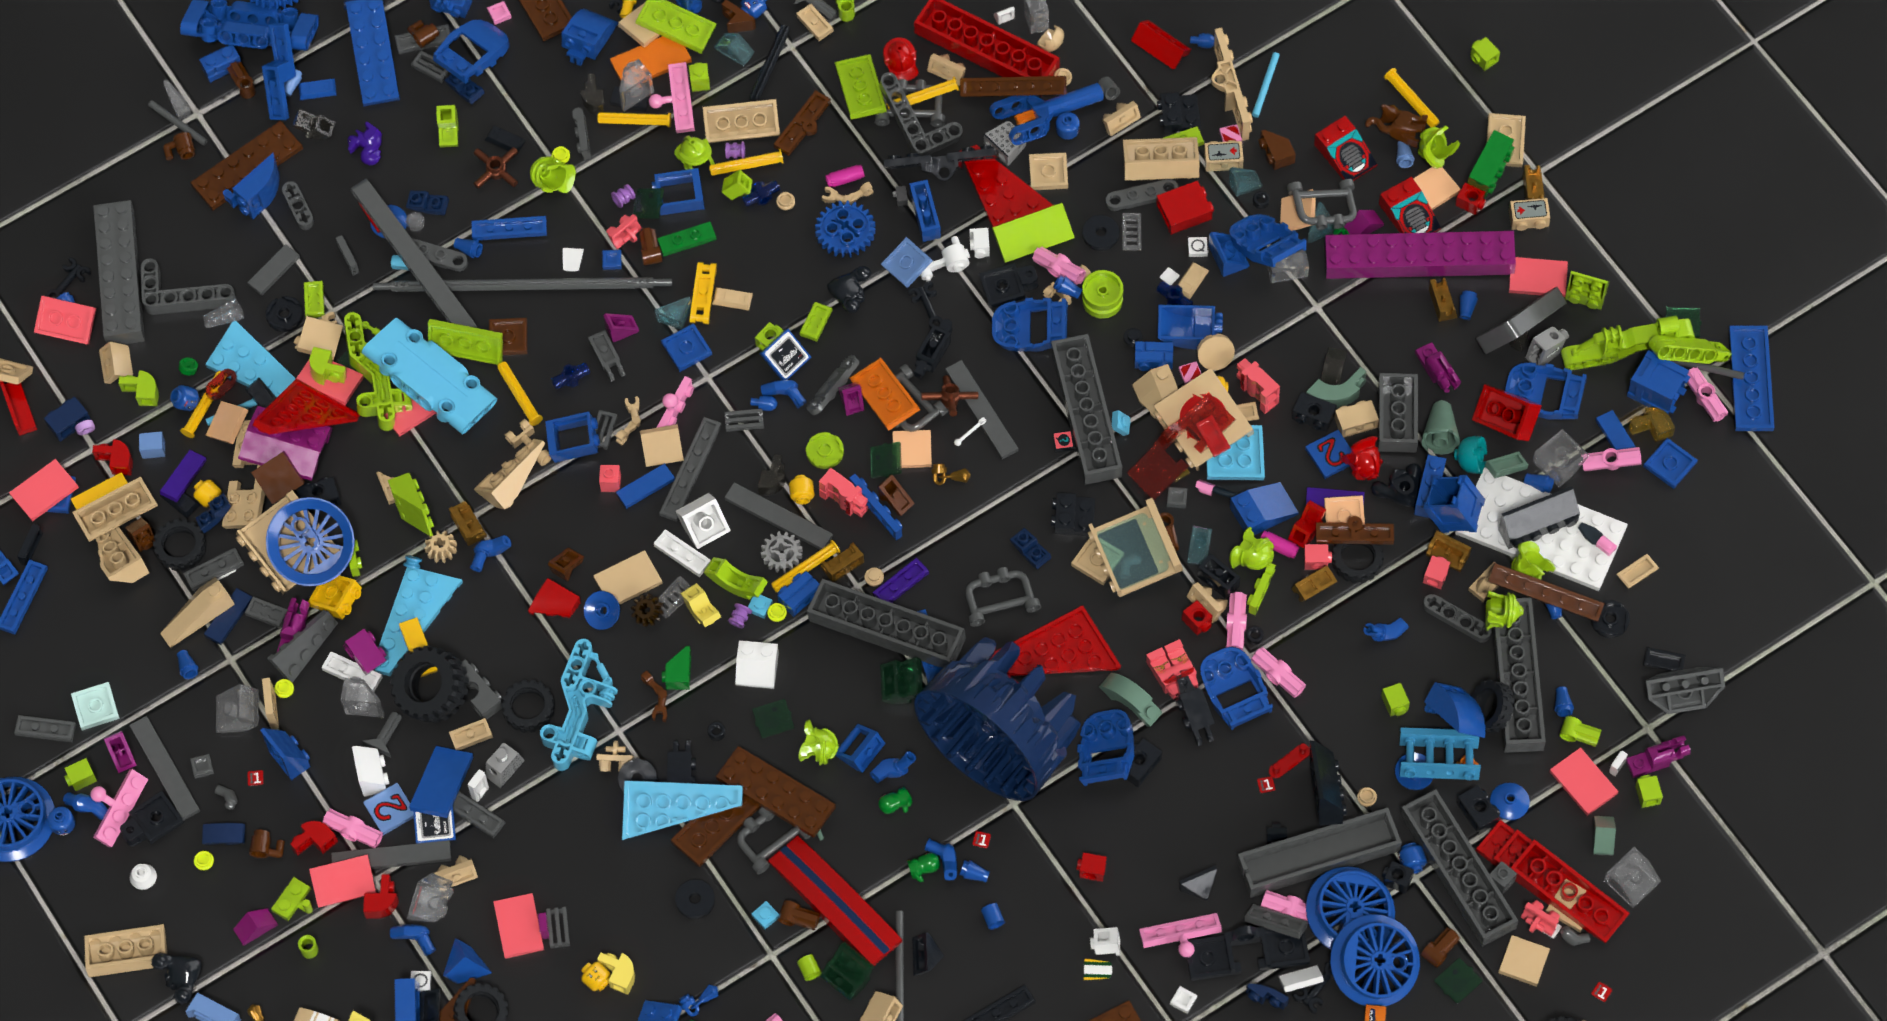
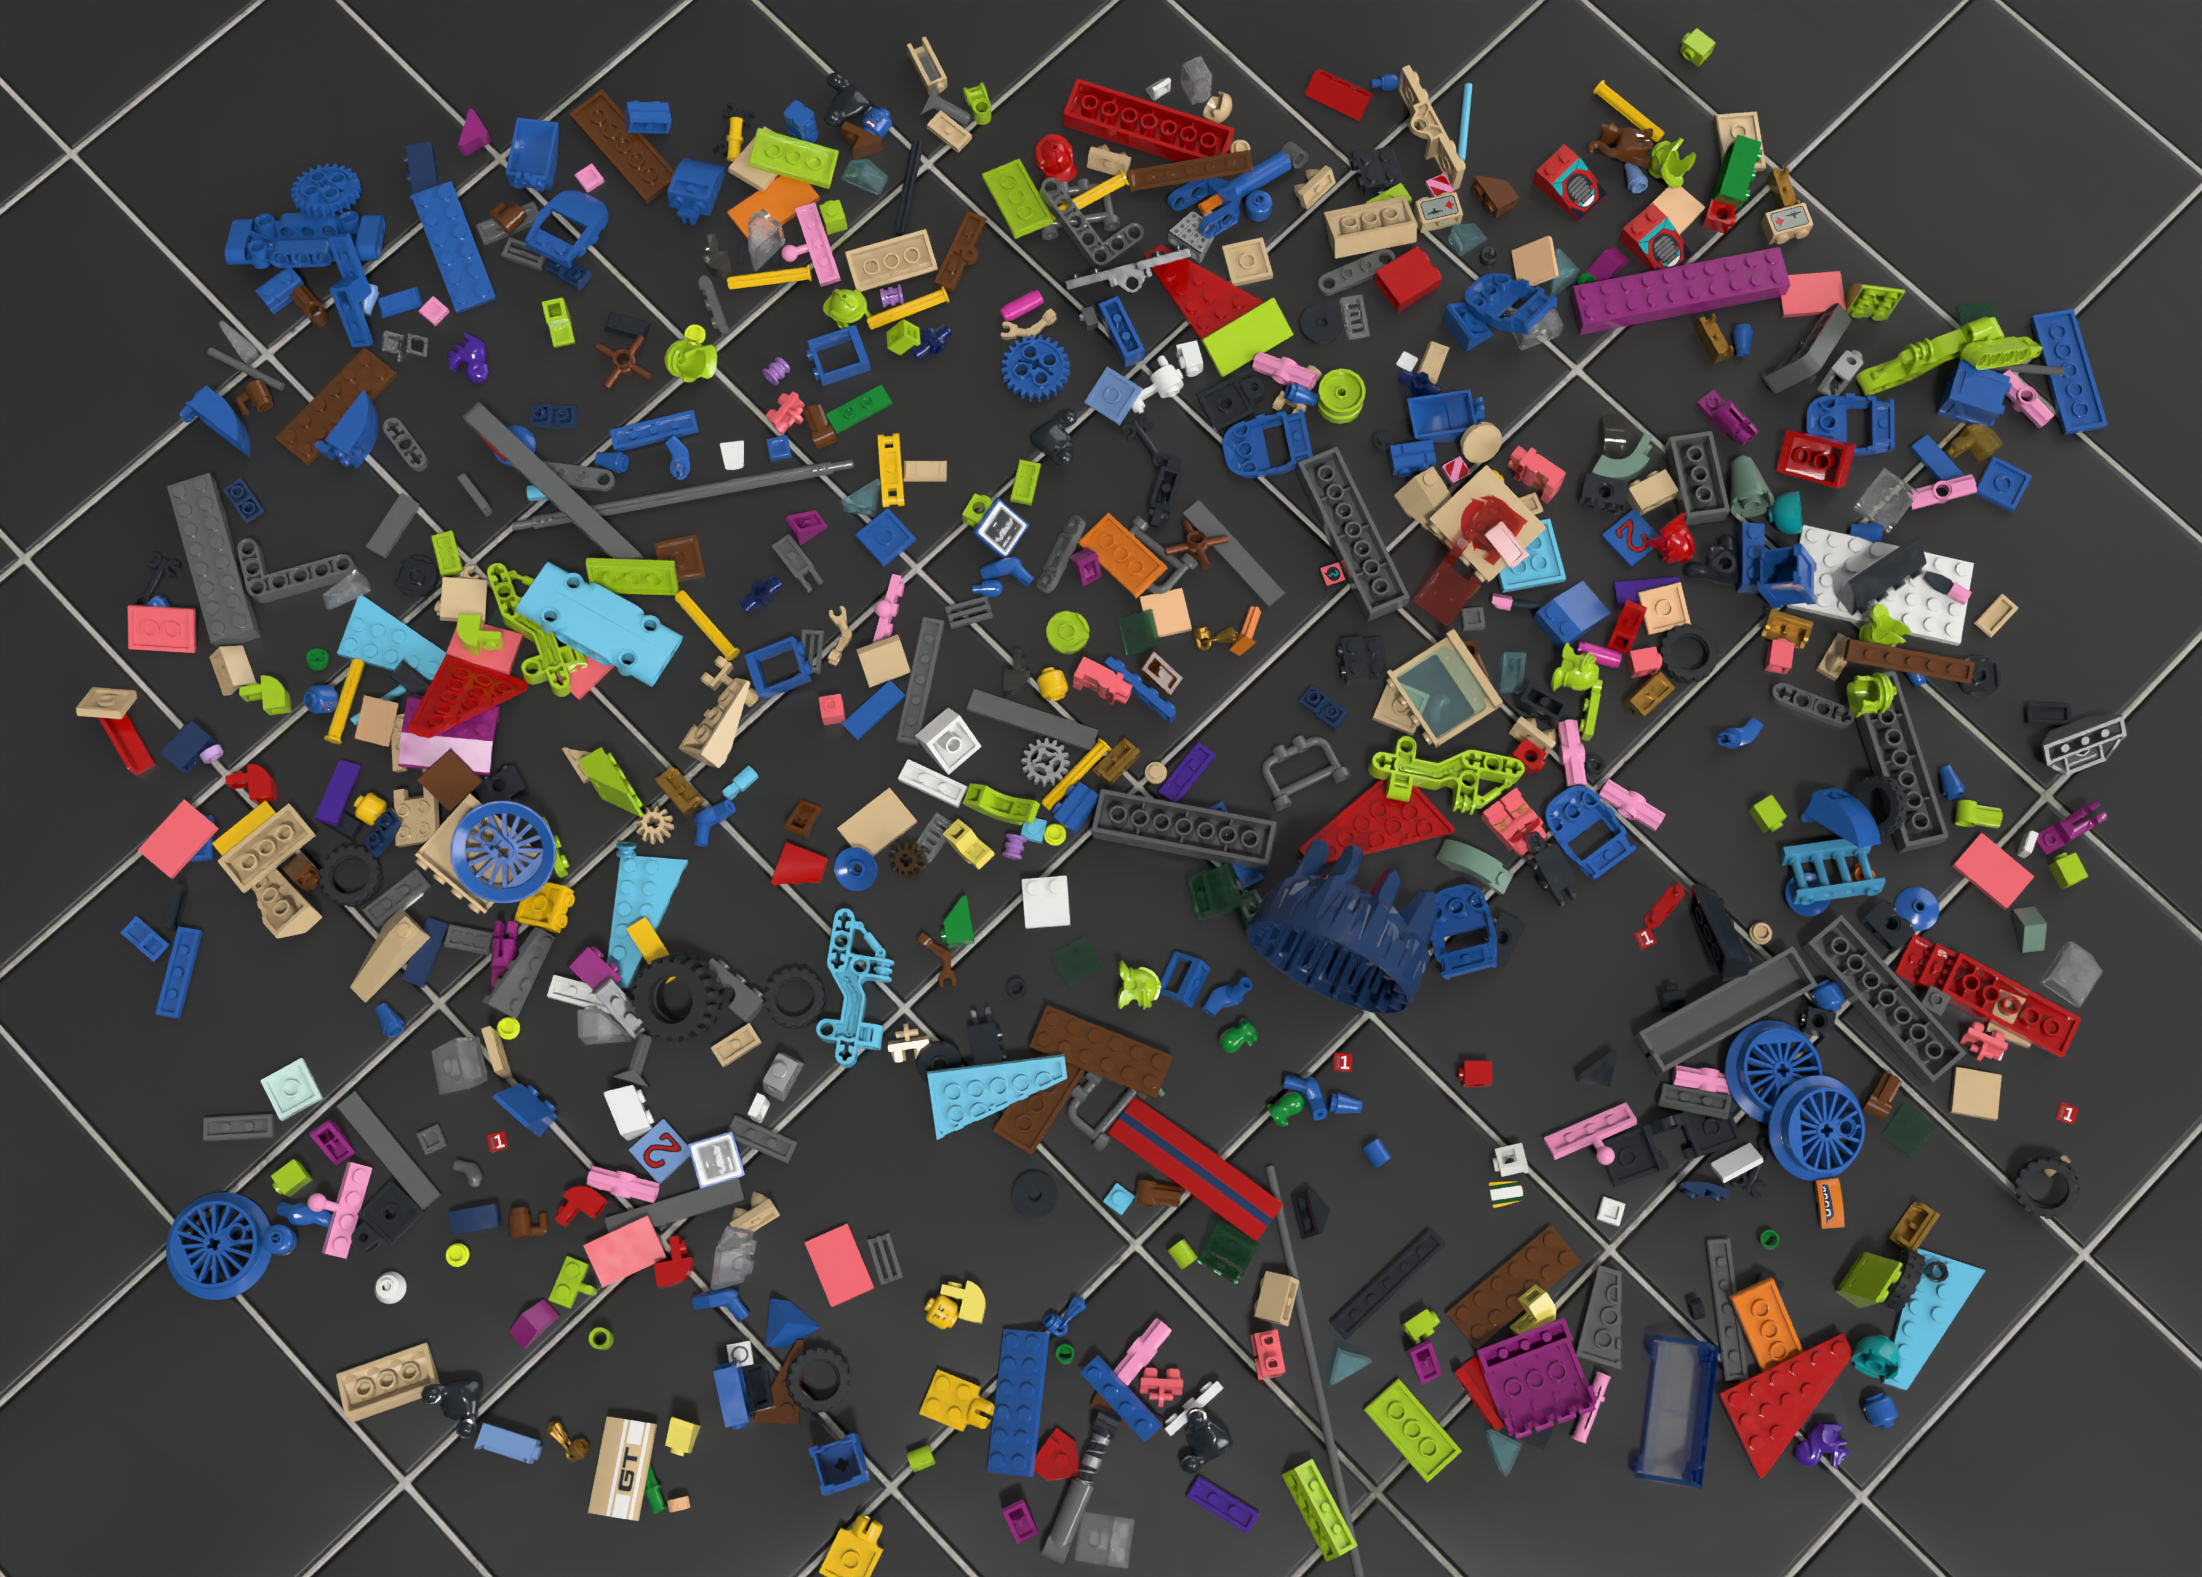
camera: 15 degrees left, 10 degrees up
(147, 156) = (219, 416): none -> blue piece
(152, 445) = (294, 761): medium blue panel -> none
(153, 228) = (243, 500): none -> dark blue slope
(224, 387) = (356, 672): clear red beam -> none
(344, 101) = (434, 311): none -> bright pink tile
(379, 683) = (619, 1006): none -> tile
(415, 221) = (544, 440): clear tile -> none
(441, 781) = (714, 1110): blue tile -> none
(520, 525) = (740, 783): none -> medium azure bar
(526, 253) = (680, 458): none -> blue arm
(543, 925) = (868, 1262): magenta tile -> none
(648, 203) = (807, 375): clear green piece -> none
(785, 201) = (961, 346): tan plate -> none
(957, 442) = (1214, 596): white hinge -> none
(977, 475) = (1244, 640): none -> orange piece
(1120, 422) = (1393, 542): medium azure plate -> none
(1121, 617) = (1467, 766): none -> lime beam
(1197, 247) = (1431, 322): white tile -> none
(1338, 220) = (1567, 271): dark grey bar -> none
(1355, 532) = (1683, 628): reddish brown hinge -> none
(1506, 464) = (1827, 518): sand green tile -> none
(1574, 938) = (2022, 1057): dark grey arm -> none

